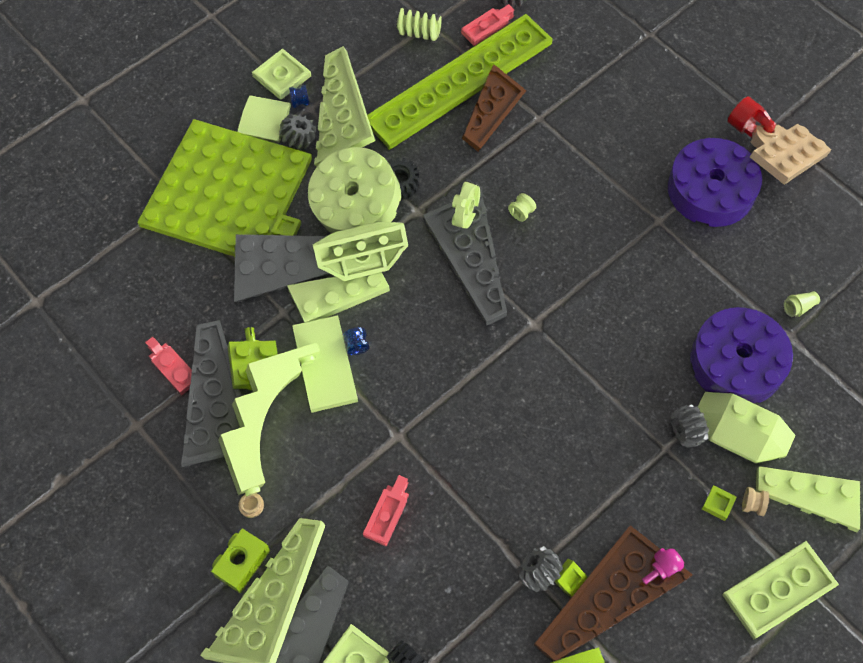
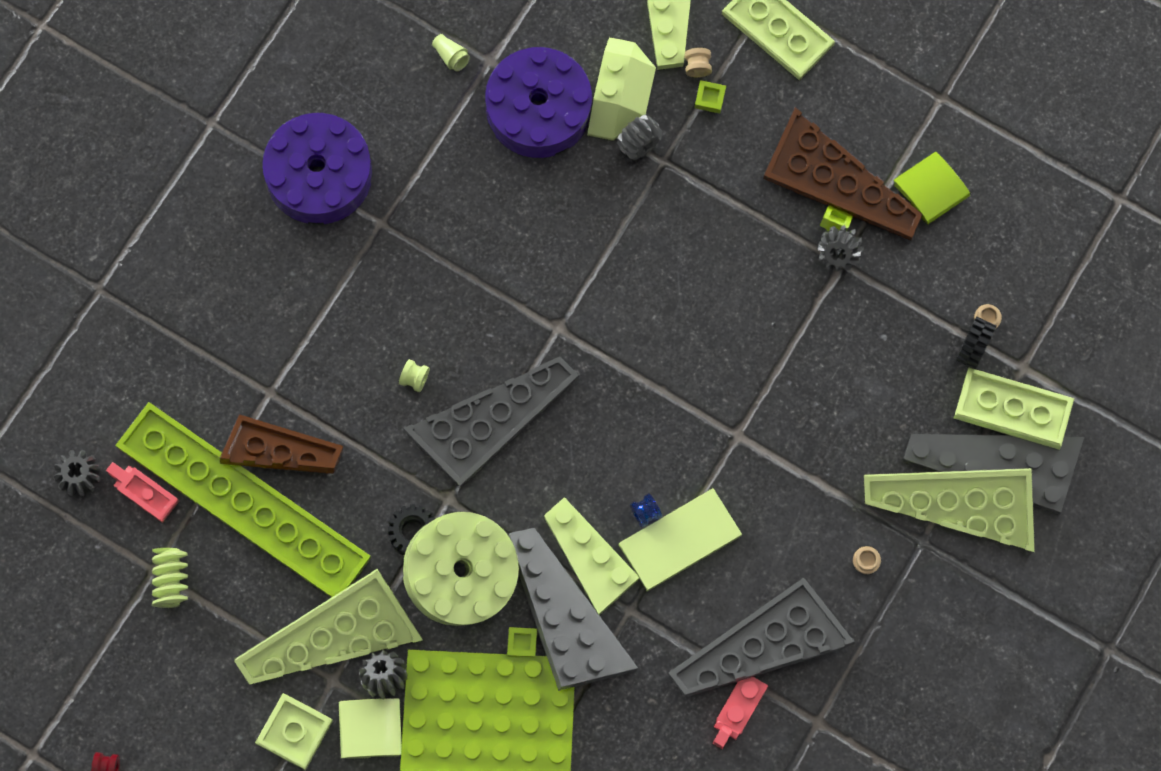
camera: 110 degrees left, 10 degrees up
(239, 575) = (944, 541): lime brick -> none
(242, 445) = (734, 579): yellowish green arch -> none
(247, 352) = (710, 613): lime plate -> none
(299, 96) = (325, 694): clear blue wheel -> none
(361, 250) = (536, 531): yellowish green wedge -> none
(387, 512) = (828, 416): coral hinge -> none
(465, 204) = (441, 428): yellowish green plate -> none
(666, 564) = (794, 130): dark pink piece -> none
(778, 150) = (247, 98): tan plate -> none

